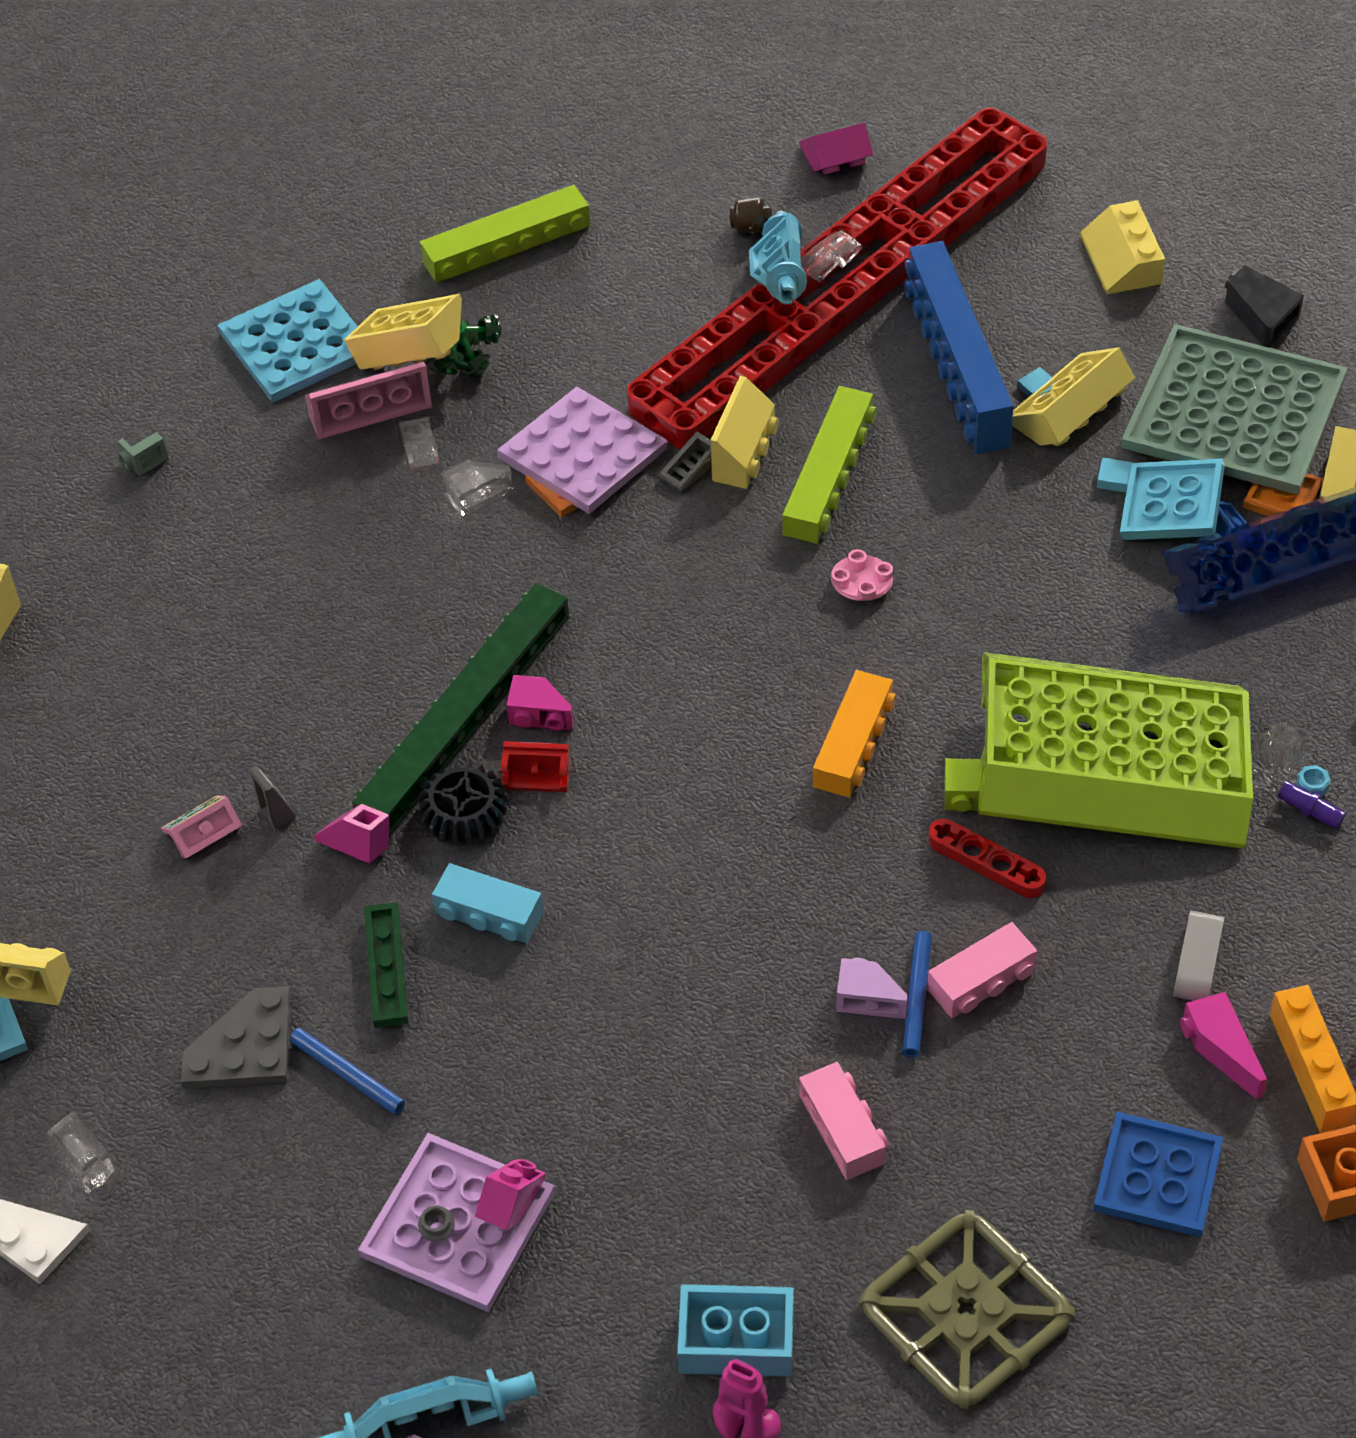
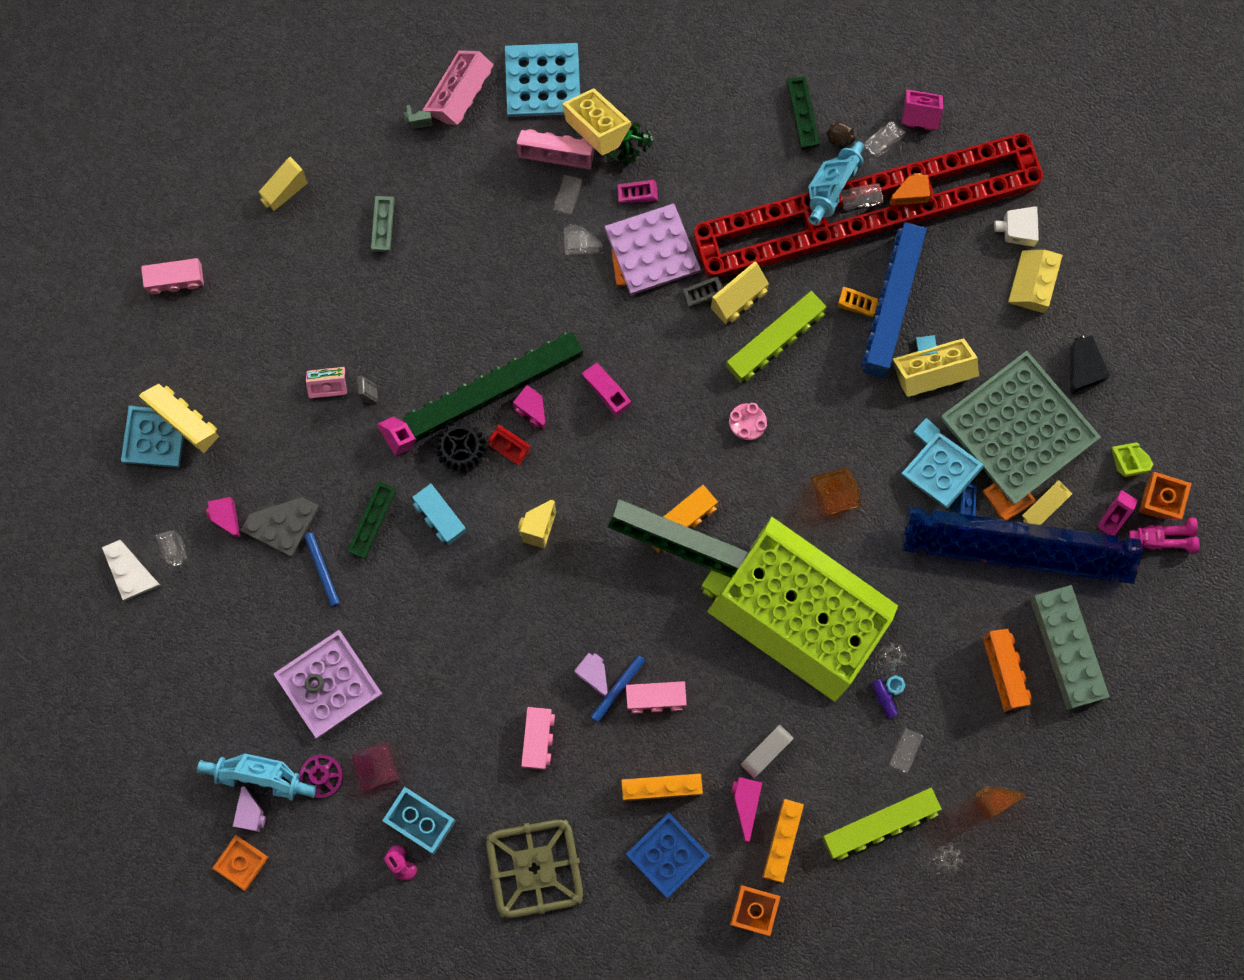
camera: 25 degrees right, 25 degrees up
(142, 1074) = (223, 514): none -> dark pink slope
(167, 596) = (382, 224): none -> sand green plate
(181, 392) = (458, 87): none -> bright pink slope
(505, 233) = (698, 69): lime brick -> none
(509, 1193) = (355, 689): dark pink slope -> none
(519, 386) = (638, 198): none -> dark pink slope
(529, 1354) = (320, 775): none -> magenta wheel
(613, 1296) = (376, 767): none -> clear pink slope
(638, 631) = (607, 390): none -> dark pink slope
(650, 829) = (537, 524): none -> light yellow slope
(682, 218) = (803, 112): none -> dark green plate
(809, 197) = (884, 138): none -> clear slope
(868, 741) = (678, 540): none -> brick
(893, 218) = (912, 191): none -> orange slope
(894, 383) = (855, 308): none -> light orange slope
(983, 862) = (699, 632): red beam -> none
(1049, 594) = (836, 491): none -> clear orange slope
(1058, 205) = (1019, 226): none -> white torso
(1080, 1083) = (662, 787): none -> light orange brick

